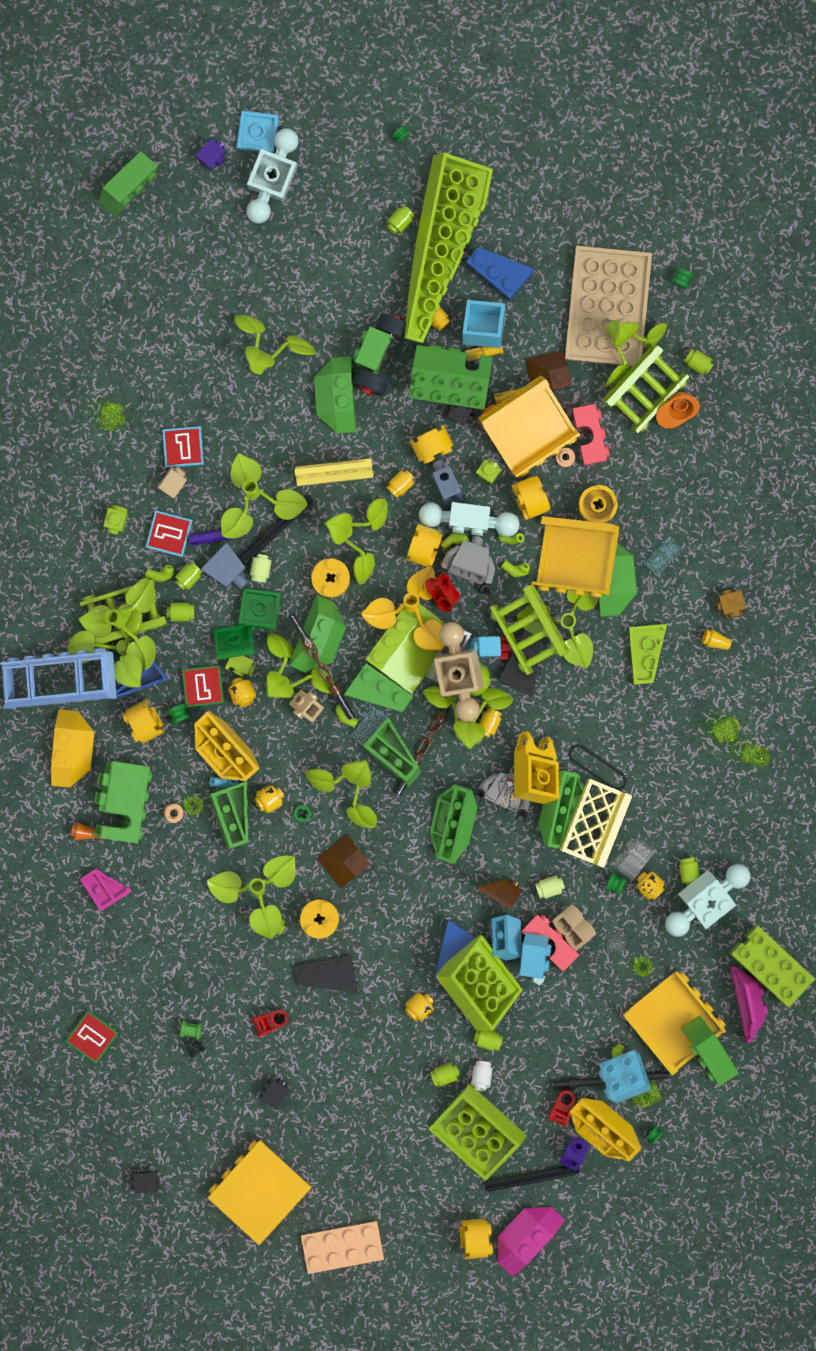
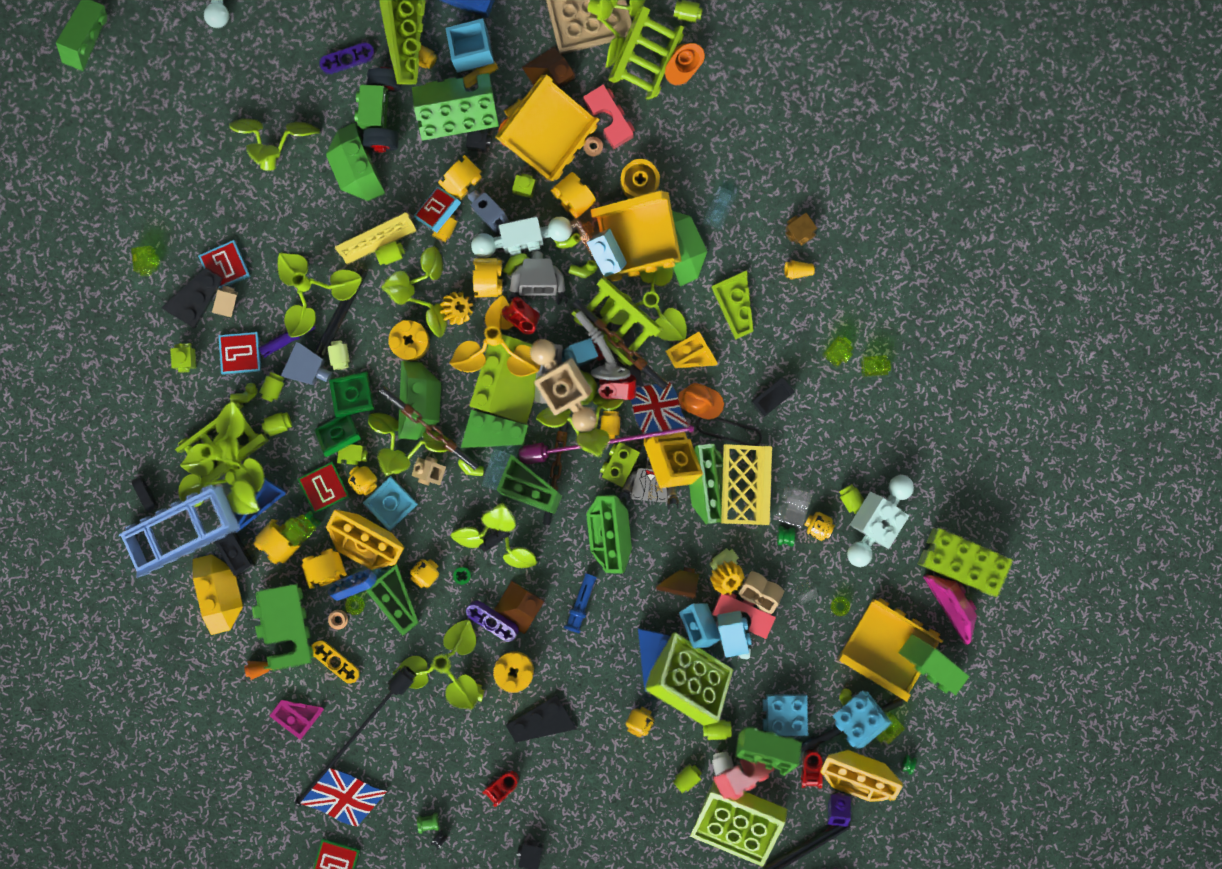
camera: 20 degrees left, 0 degrees up
(35, 633) = (144, 494): none -> black beam
(100, 718) = (234, 553): none -> black panel
(121, 975) = (342, 793): none -> flag
(145, 468) = (194, 298): none -> black wing
(159, 866) = (343, 675): none -> yellow beam
(168, 717) = (298, 530): none -> clear neon green brick
(177, 761) = (323, 568): none -> yellow brick
(199, 785) = (352, 584): none -> blue beam
(259, 722) = (390, 503): none -> medium azure tile
(308, 865) = (477, 617): none -> dark purple beam
(341, 490) = (389, 253): none -> lime brick
(344, 790) = (494, 539): none -> black axle
(368, 286) = (358, 48): none -> dark purple beam
(382, 556) = (451, 313): none -> yellow gear
(397, 886) = (578, 612): none -> blue pin
(399, 465) = (437, 209): none -> tile
(485, 762) = (620, 464): none -> lime brick
(507, 672) = (610, 370): none -> light grey dish
(509, 690) = (618, 389): none -> red piece
(510, 1087) = (733, 782): none -> coral arch
(529, 1073) = (769, 749): none -> bright green wedge
(532, 548) = (586, 231): none -> clear orange wing
(535, 725) = (654, 410): none -> flag
(537, 675) = (640, 363): none -> piece
(543, 562) = (607, 252): none -> medium azure brick
(547, 902) = (727, 577): none -> yellow gear
(556, 1048) = (786, 714): none -> medium azure brick
(581, 730) = (701, 401): none -> orange piece
(588, 682) = (691, 353): none -> yellow wing
(649, 750) = (772, 397): none -> black panel

